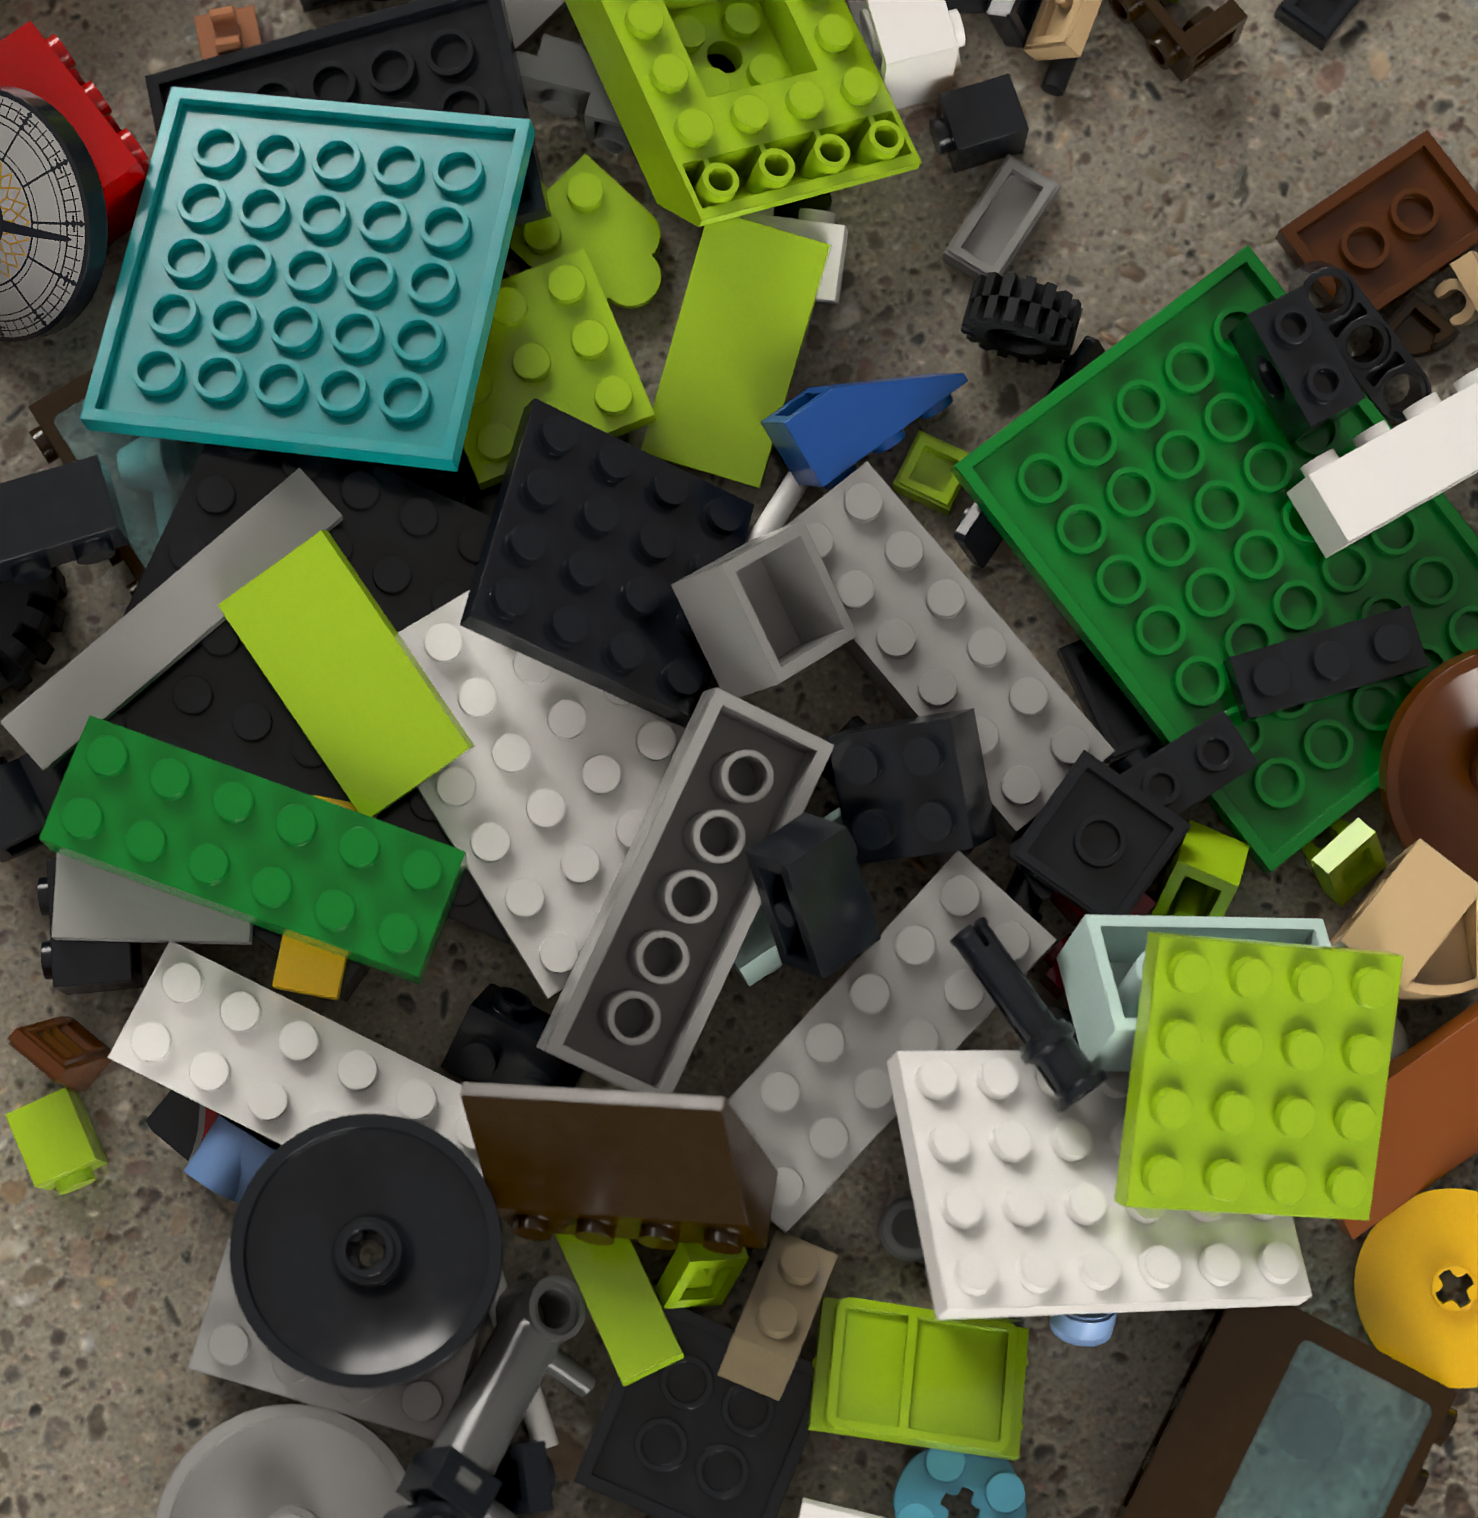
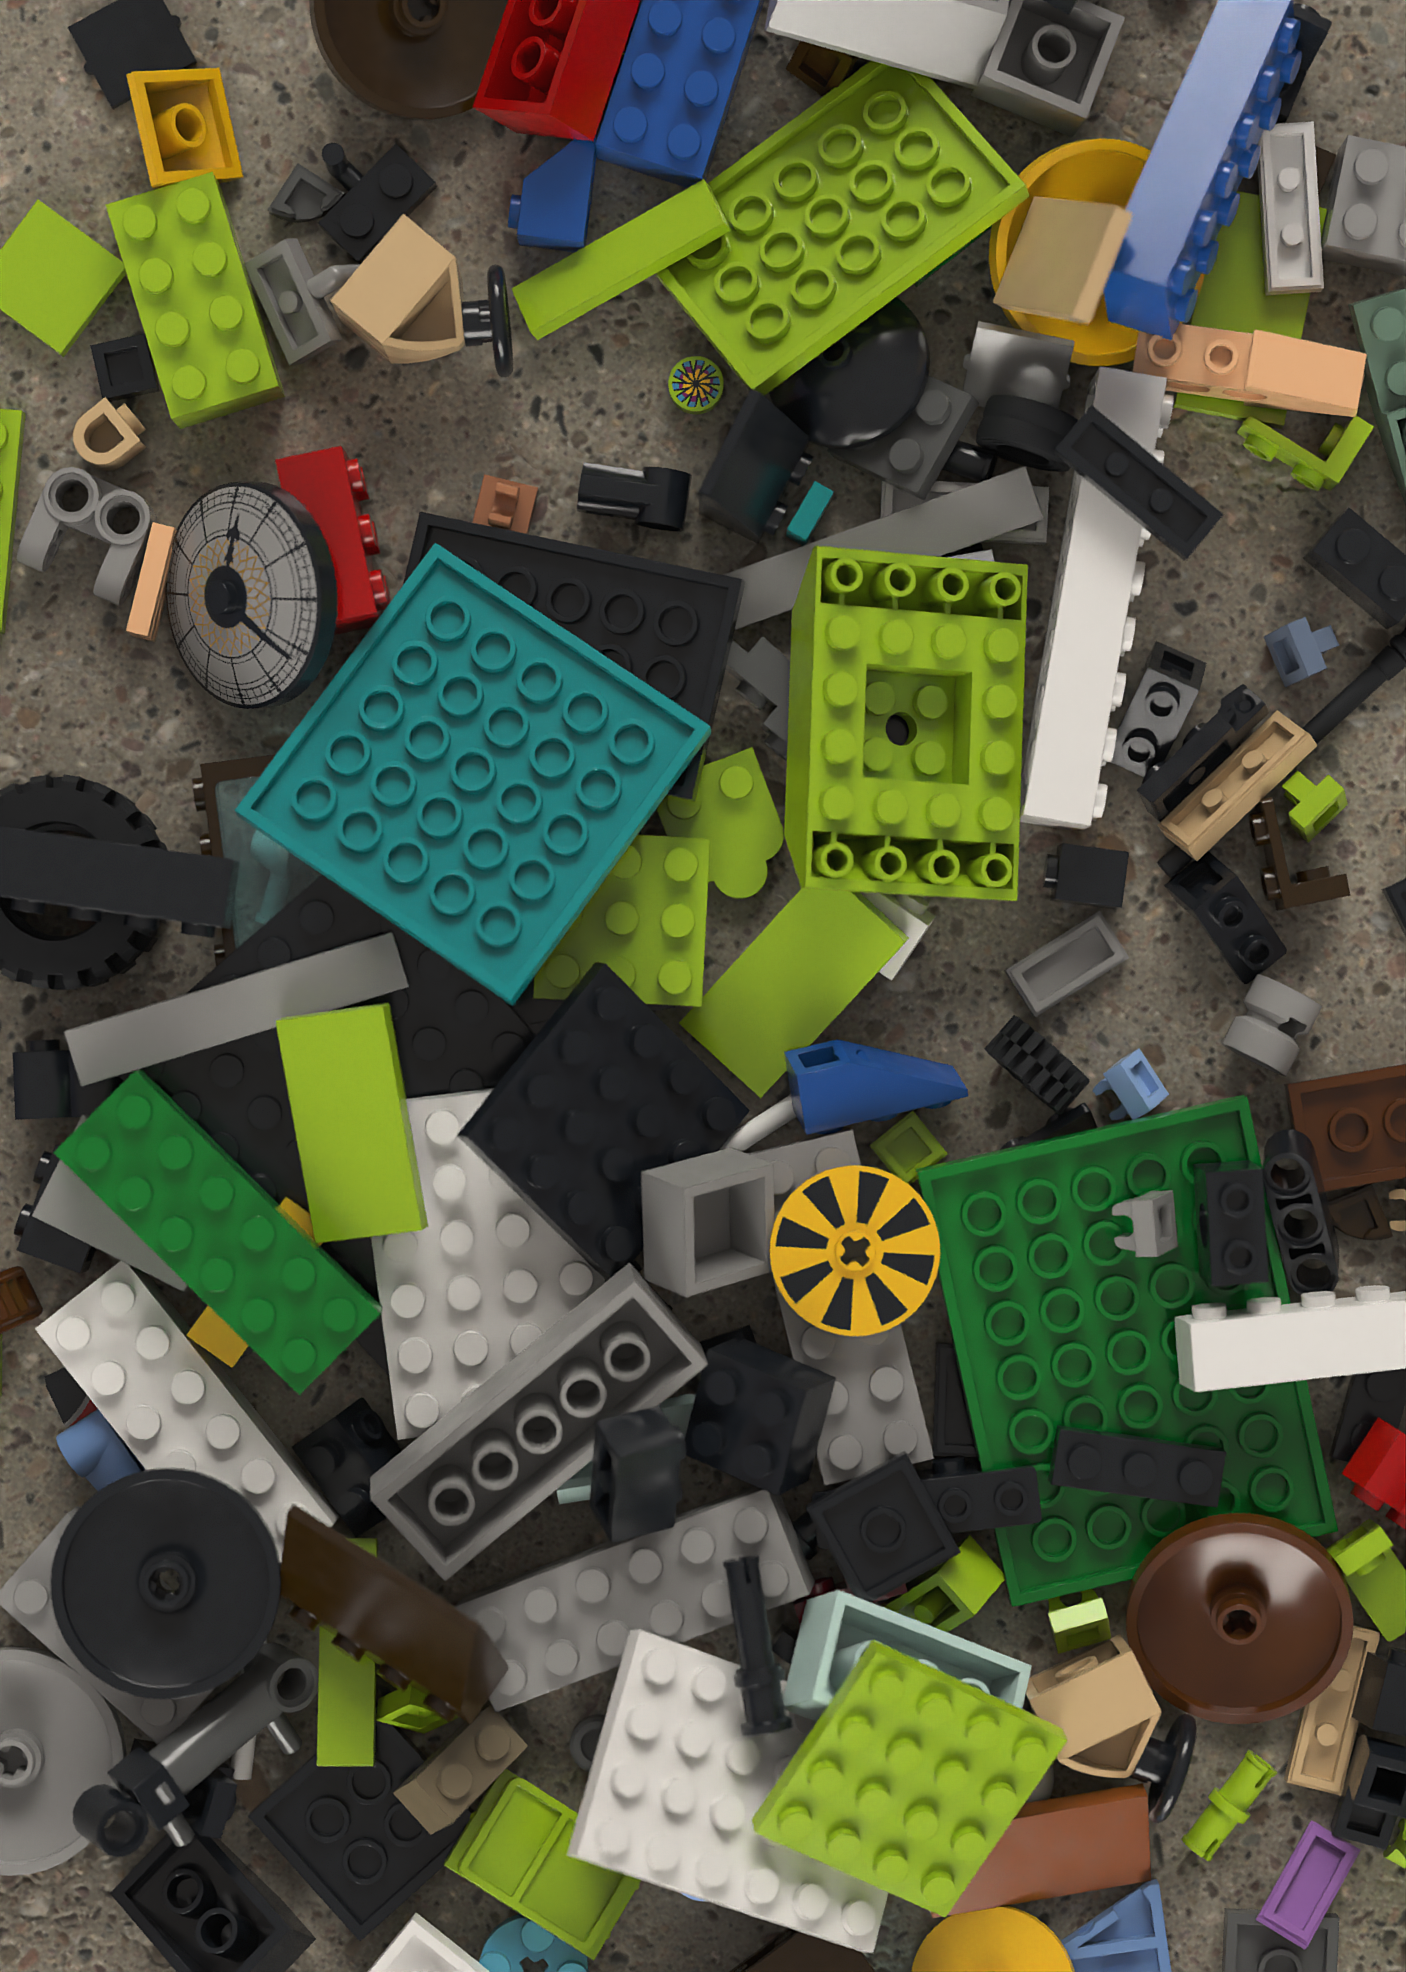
camera: 25 degrees right, 10 degrees up
(951, 616) = (854, 1296): none -> yellow piece
(1126, 300) = (1134, 1085): none -> light blue tile
(1141, 95) = (1228, 916): none -> black bracket
(1217, 401) = (1152, 1223): none -> light grey tile
(1234, 176) = (1271, 1025): none -> light grey wheel

